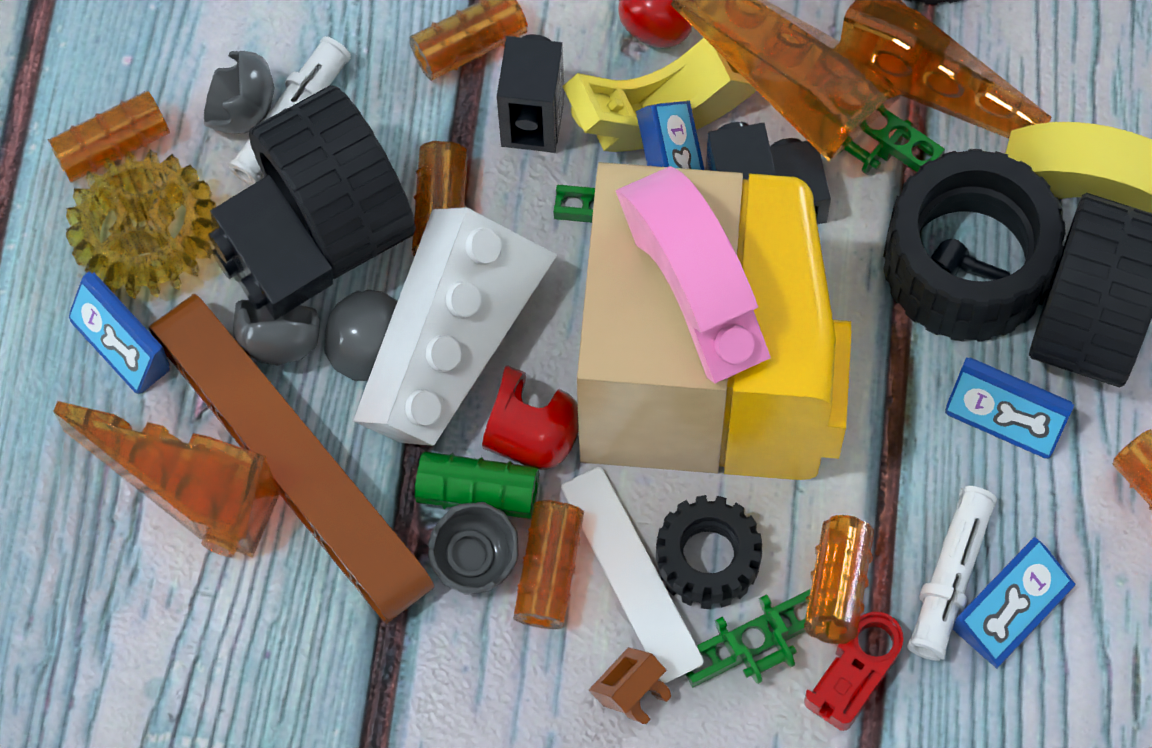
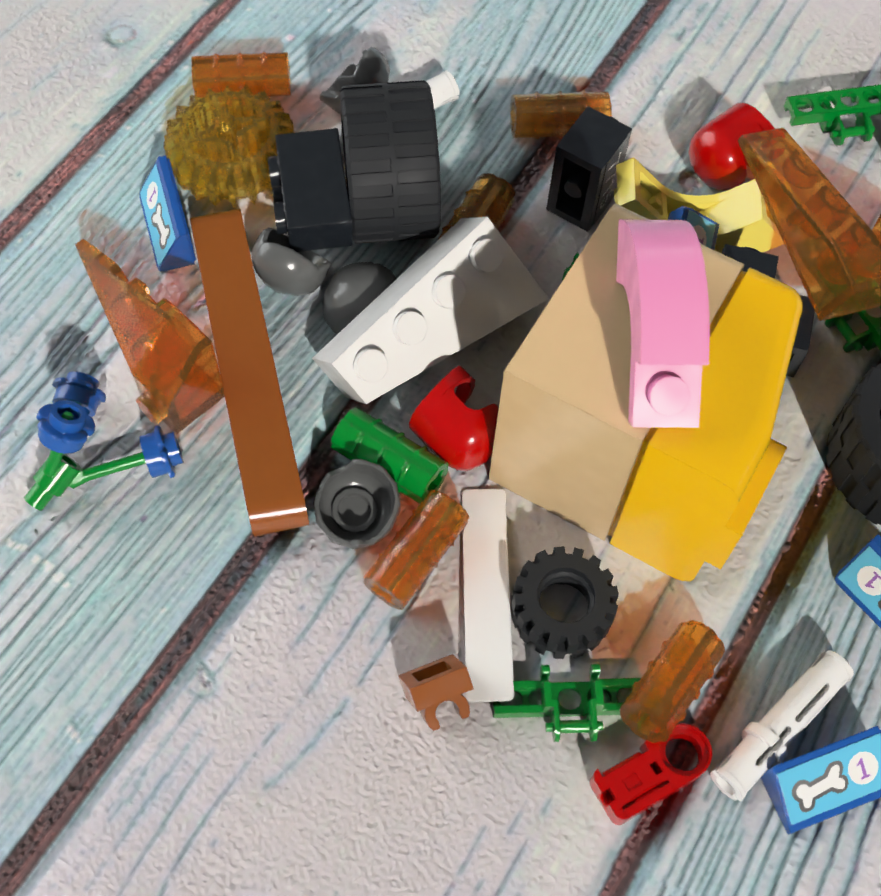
camera: 20 degrees right, 5 degrees down
(170, 603) = (65, 430): none -> blue plant

